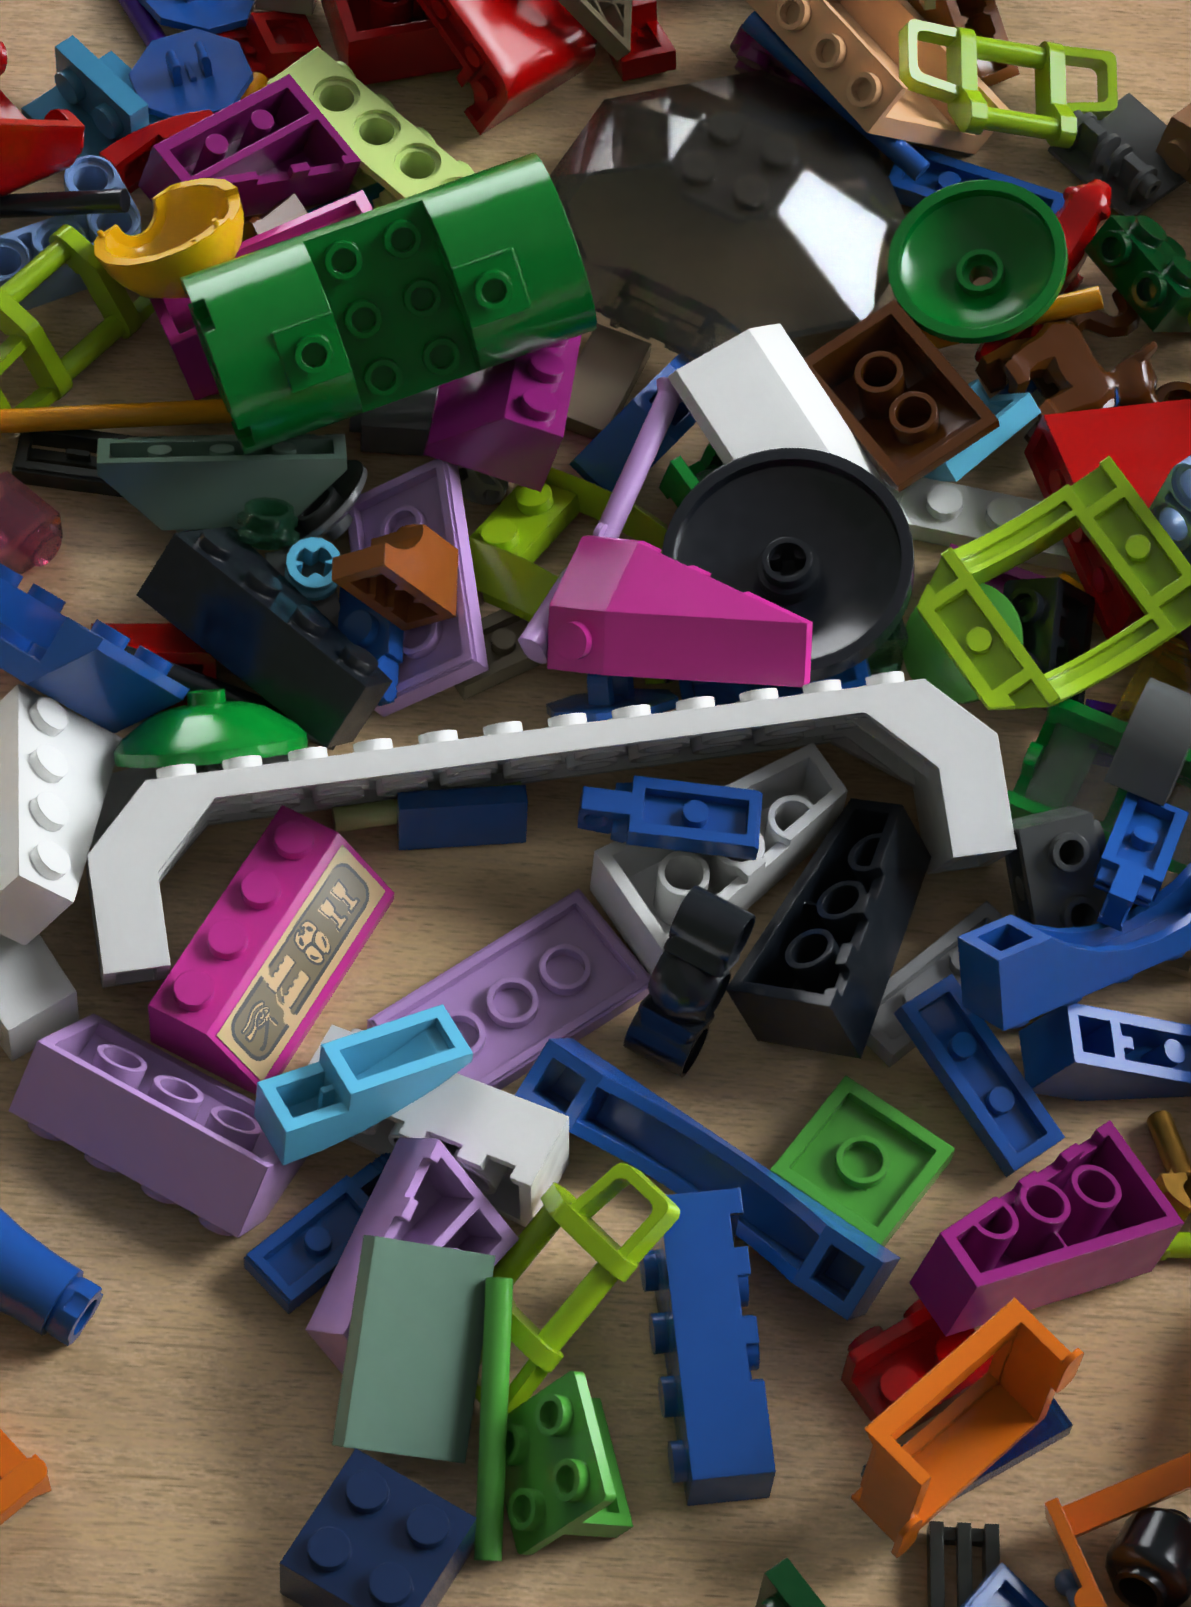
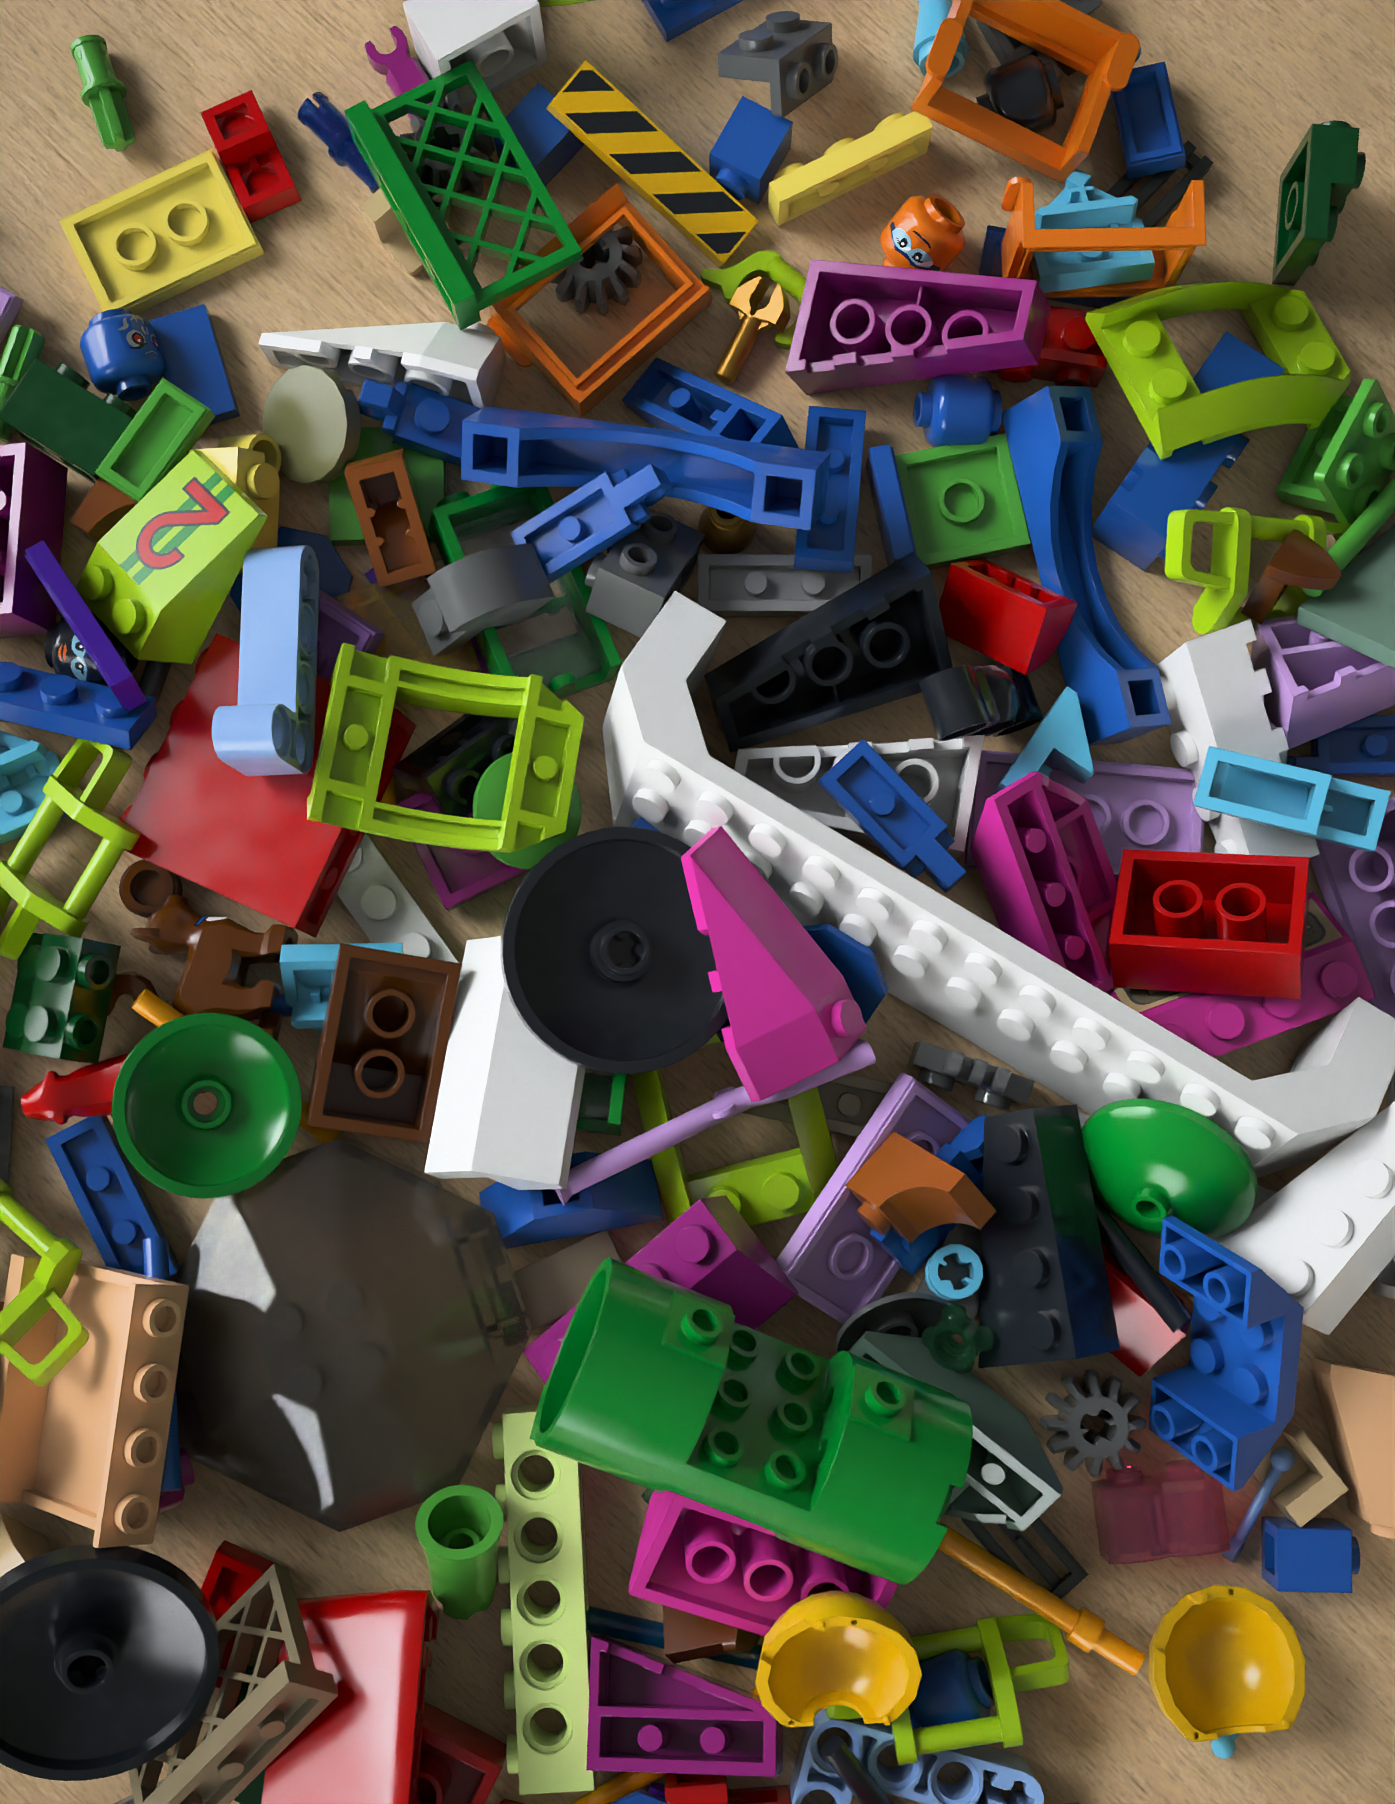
camera: 130 degrees left, 25 degrees up
(63, 312) = (951, 1690): none -> blue head
(101, 564) = (1094, 1444): none -> dark grey gear
(341, 948) = (1210, 923): none -> red brick
(452, 711) = (994, 1084): none -> dark grey hinge
(489, 897) = (1049, 874): none -> dark pink wedge
(508, 135) = (460, 1542): none -> bright green plant
(528, 1275) = (1296, 563): none -> reddish brown tile
(597, 1008) = (1058, 740): none -> medium azure slope
(738, 1085) = (1003, 614): none -> red brick
(799, 1348) = (1165, 392): none -> lime wedge
(917, 1102) = (889, 503): none -> blue tile
(922, 1221) = (958, 410): none -> blue head
(979, 1458) = (1088, 207): none -> medium azure slope
(1117, 1348) = (923, 234): none -> orange head

